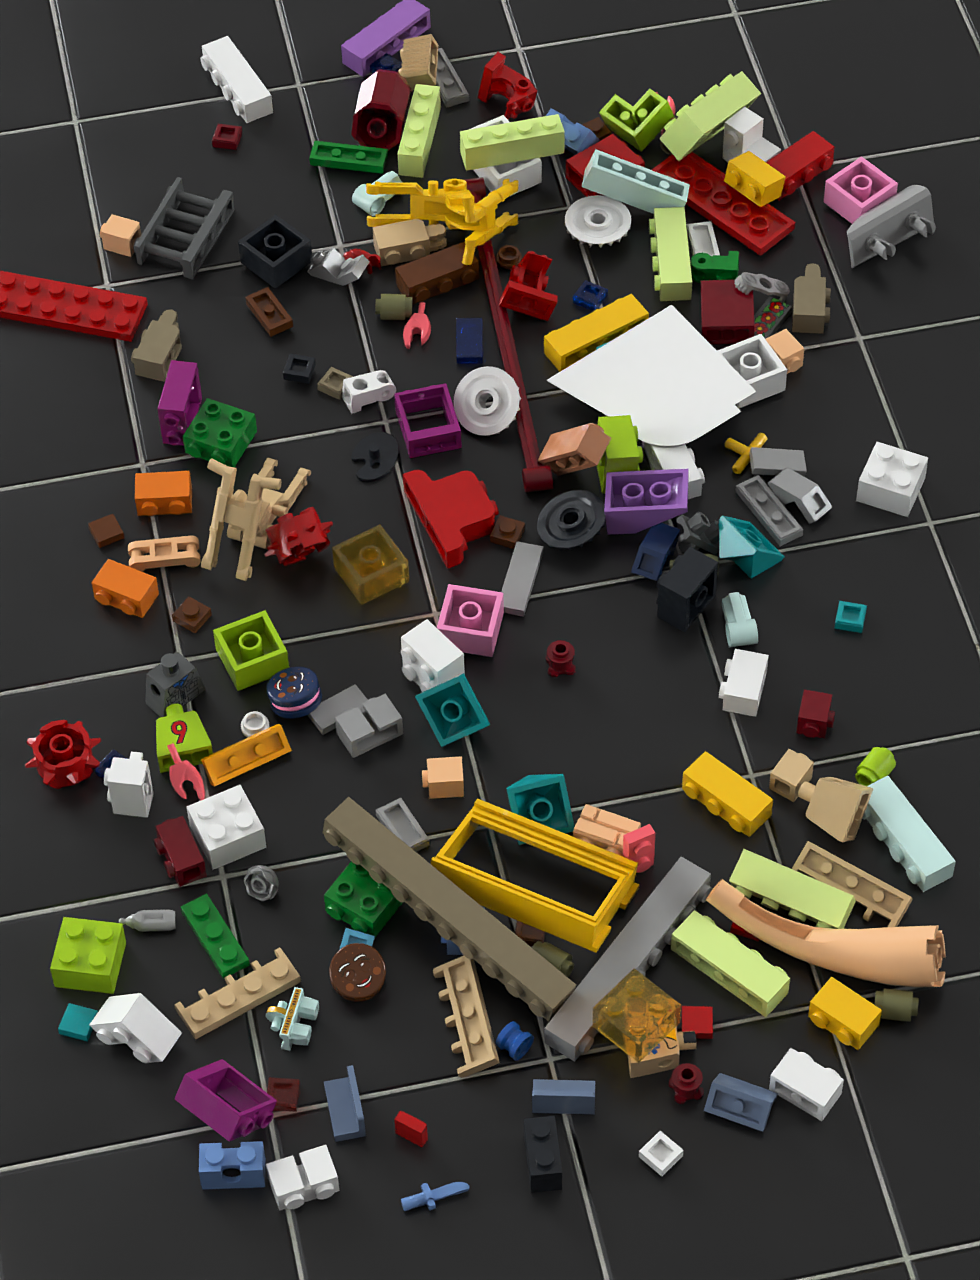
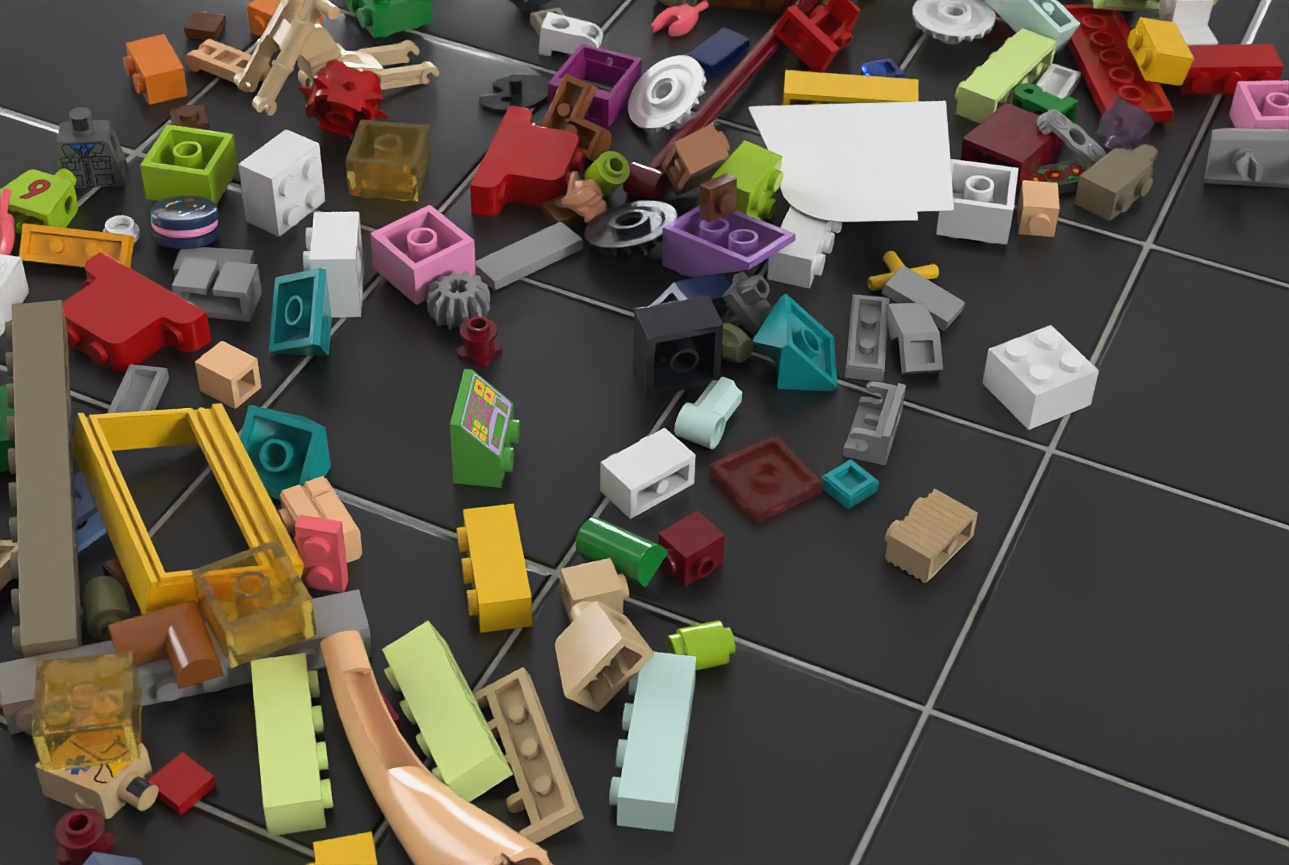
camera: 35 degrees right, 10 degrees down
(331, 624) = (282, 182): none -> white brick
(335, 774) = (128, 317): none -> red brick
(442, 456) = (568, 114): none -> dark orange brick
(514, 489) = (609, 171): none -> lime brick
(520, 514) = (584, 197): none -> nougat hat
(520, 638) = (457, 298): none -> light grey gear
(624, 471) = (718, 197): none -> reddish brown plate
(626, 946) = (171, 633): none -> dark orange brick
(637, 720) = (482, 433): none -> bright green slope
(654, 900) = (254, 603): none -> clear yellow brick
(777, 740) = (629, 552): none -> green brick
(780, 246) = (1124, 126): none -> clear purple brick
(804, 643) = (765, 478): none -> clear red tile
(831, 567) = (875, 423): none -> light grey hinge
(925, 622) = (929, 535): none -> tan brick

